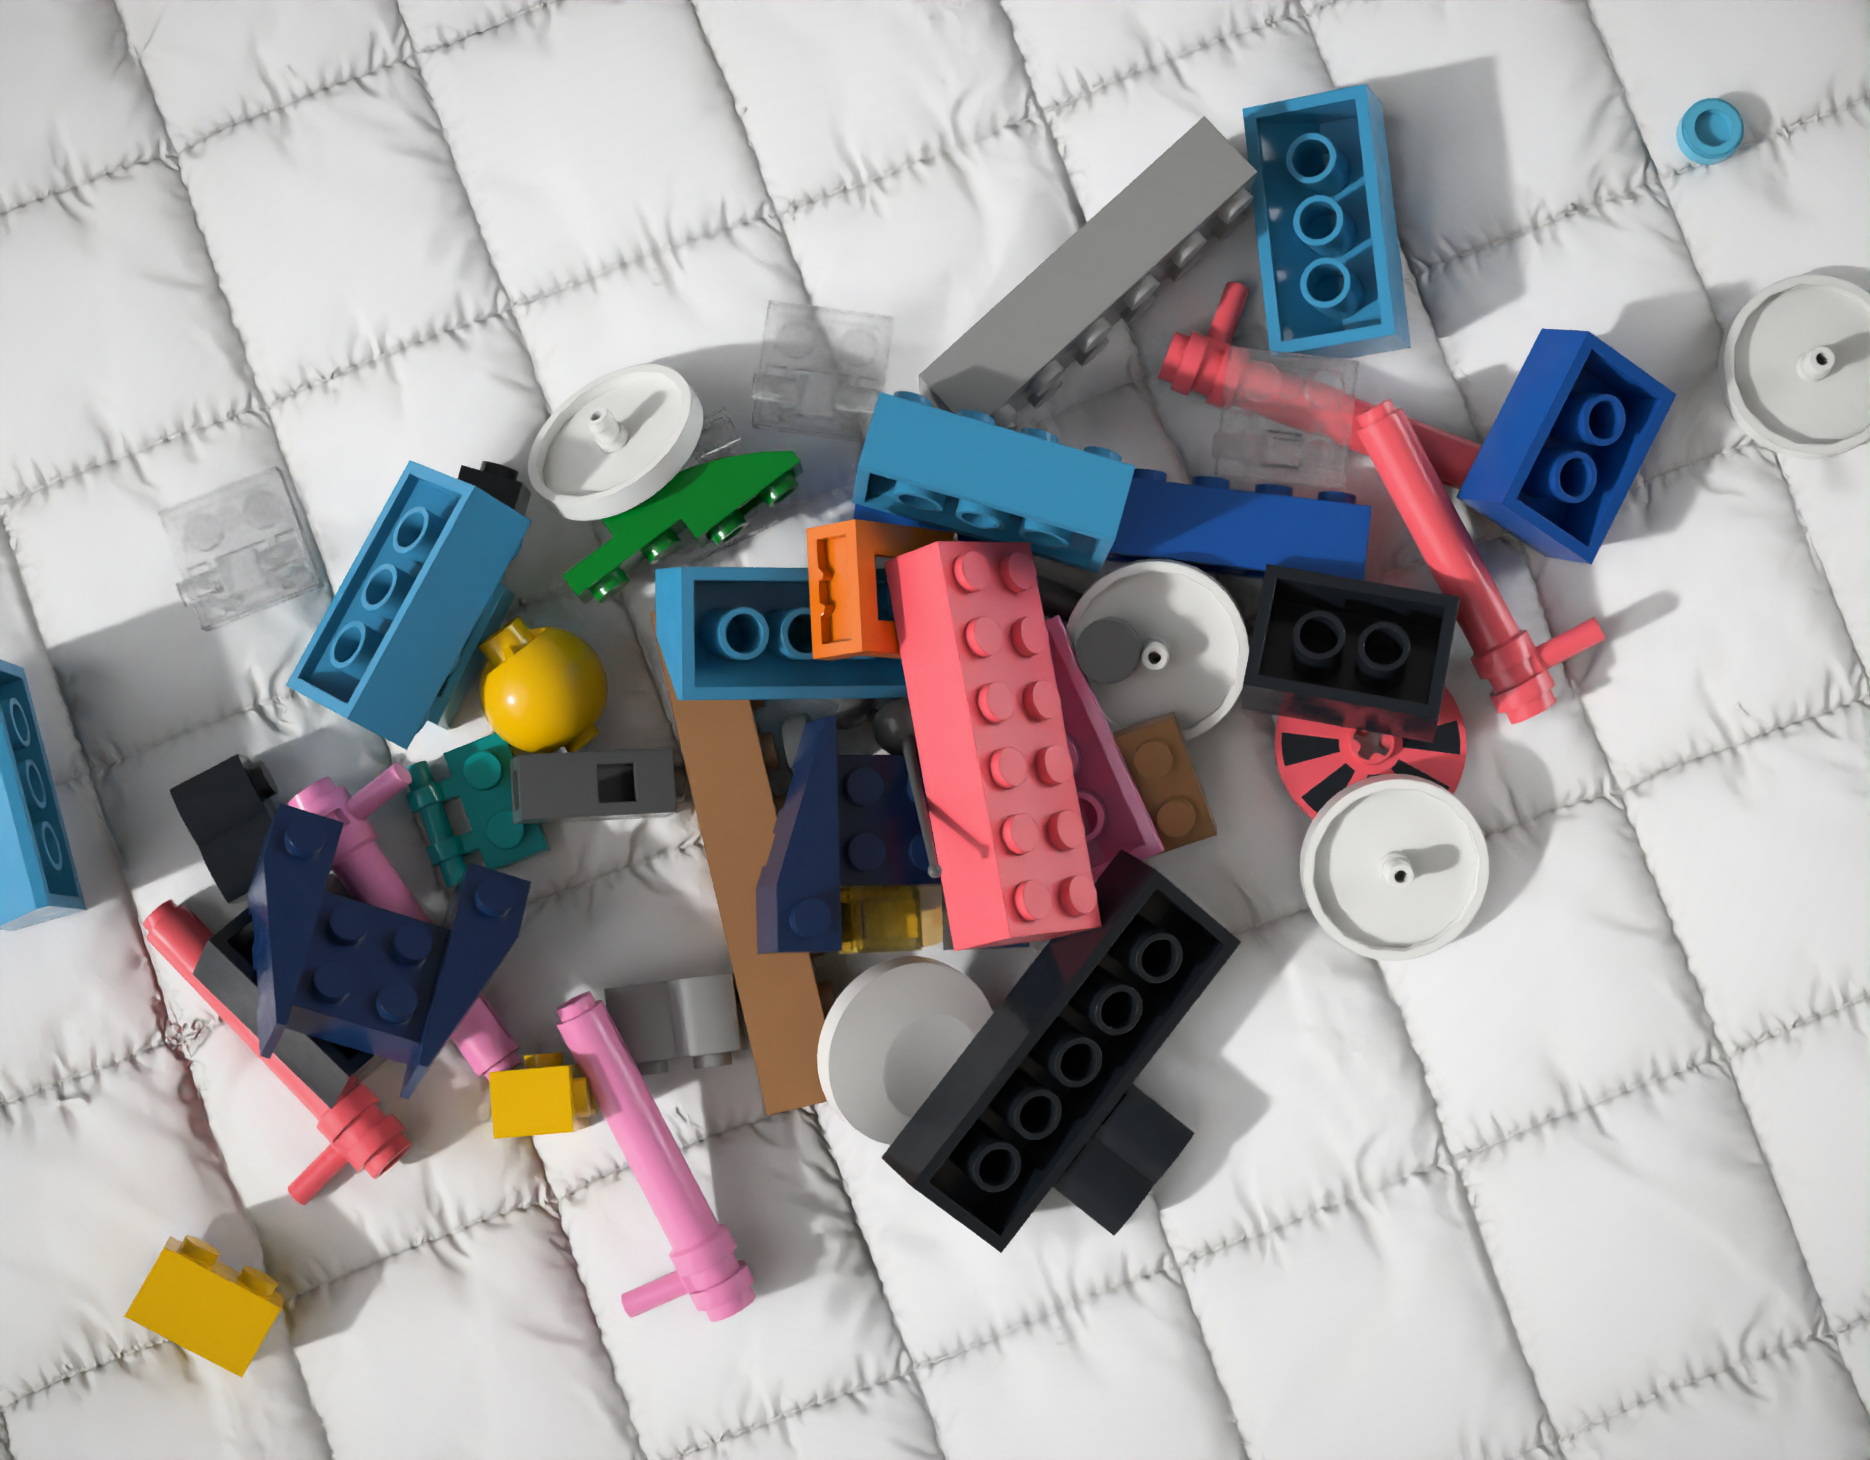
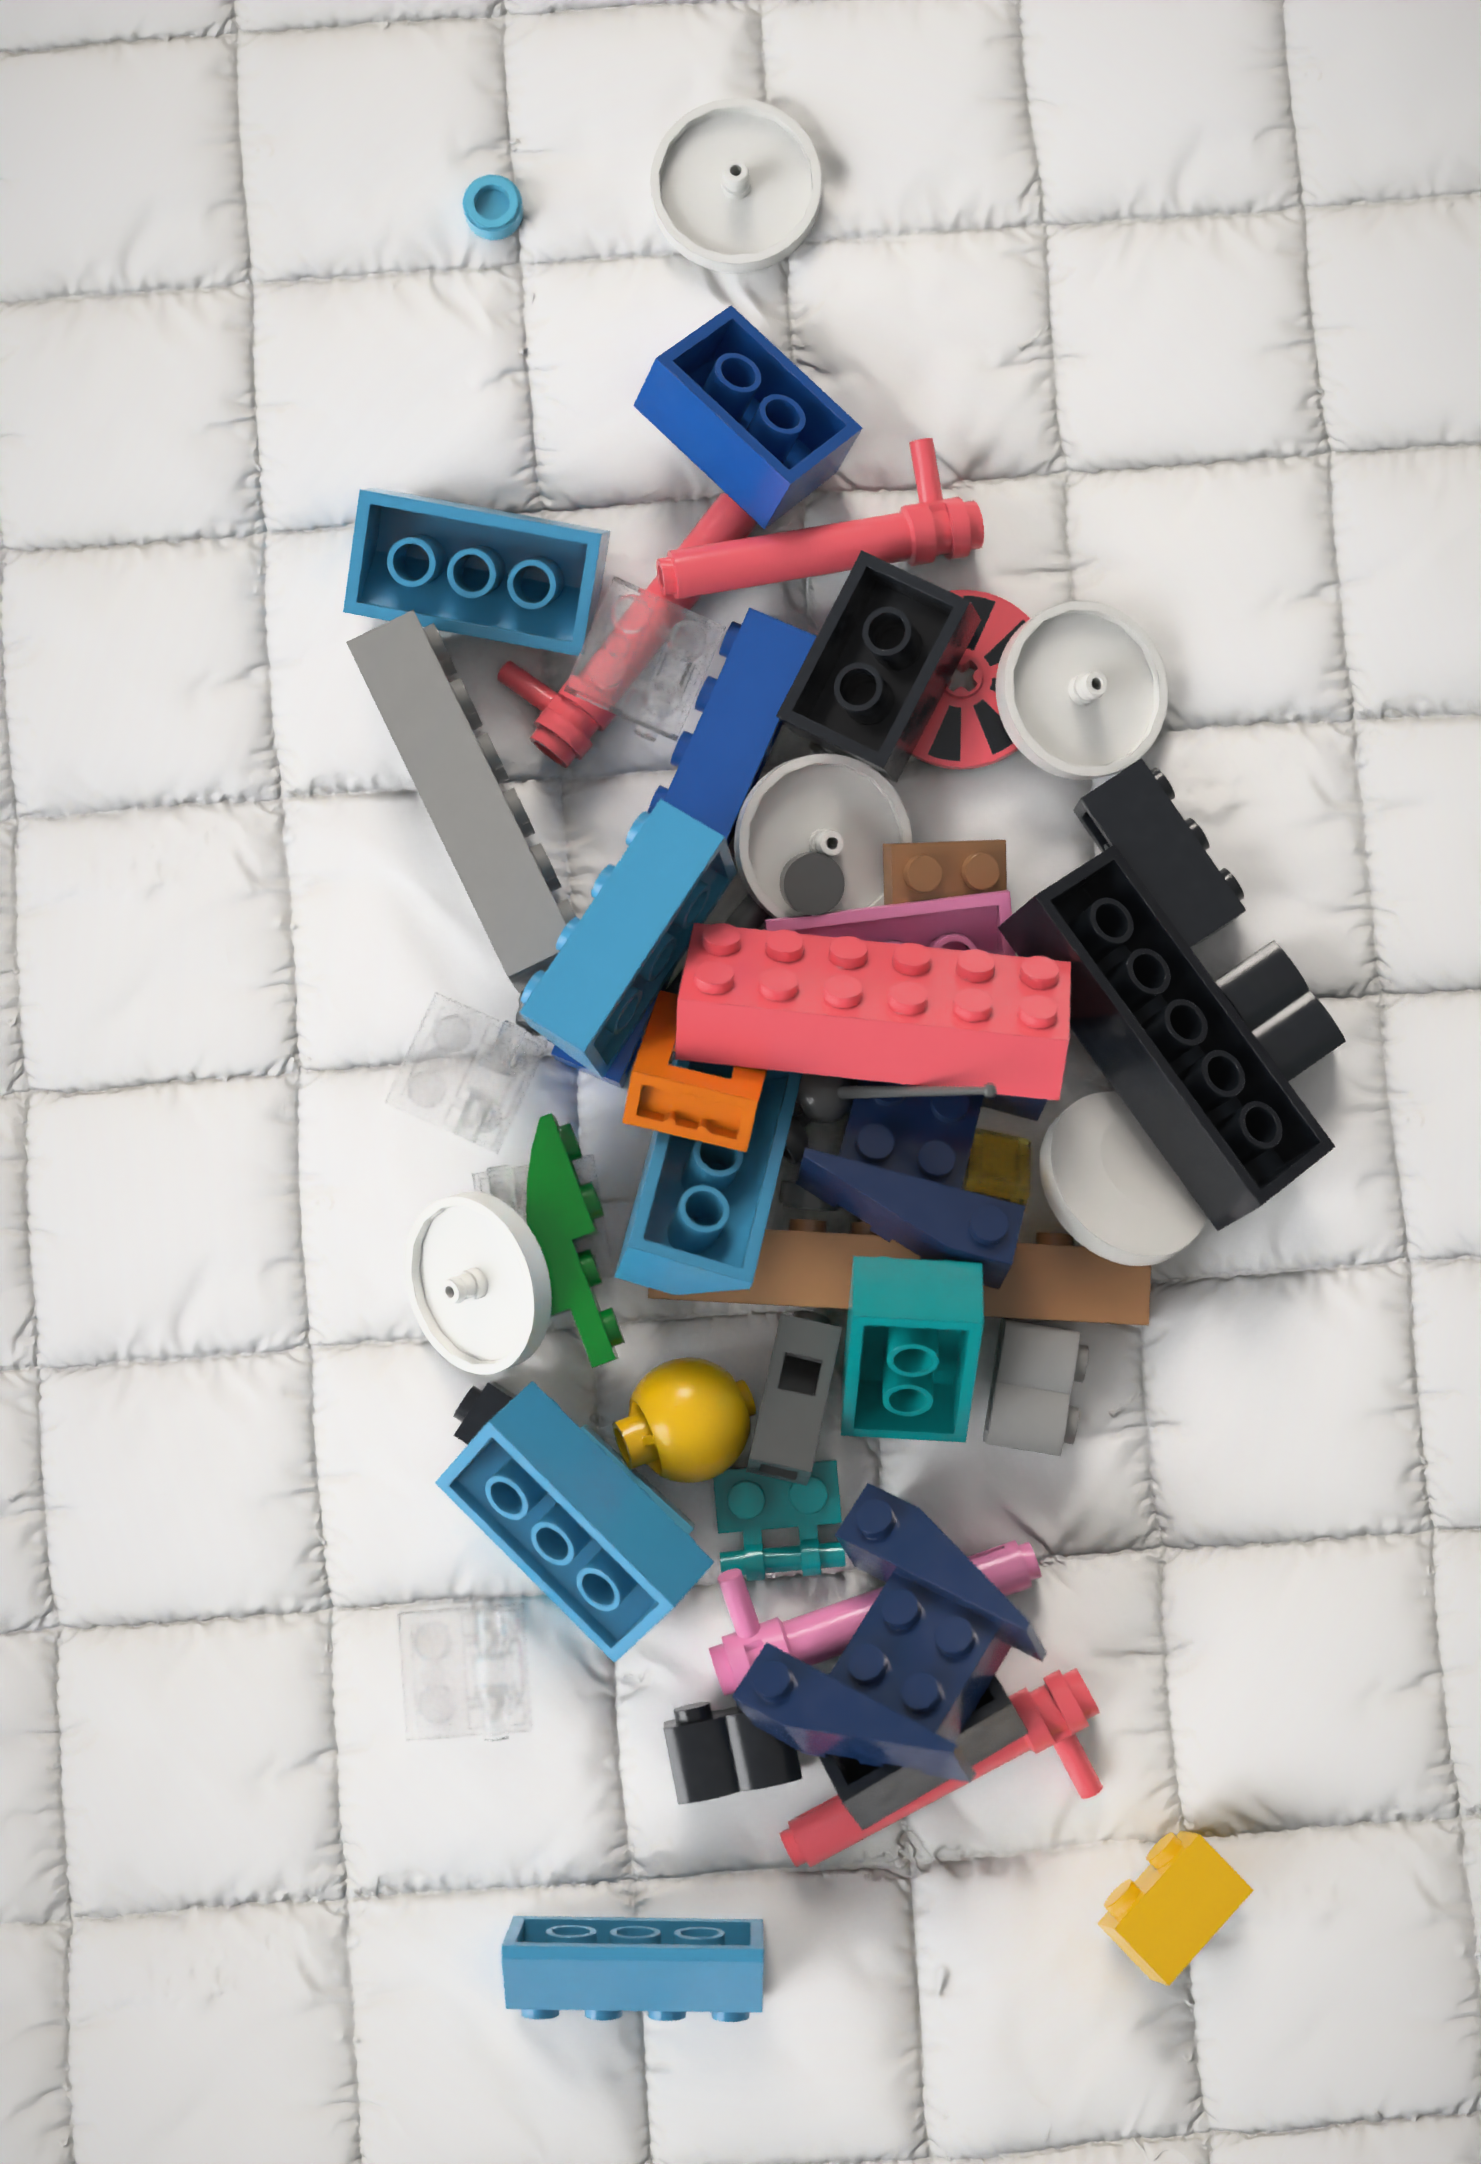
camera: 75 degrees left, 0 degrees up
(540, 1098) = (1074, 1530): yellow brick -> none
(671, 880) = (911, 1348): none -> teal brick
(699, 1244) = (1245, 1424): bright pink cylinder -> none
(1251, 997) = (1163, 850): none -> black brick

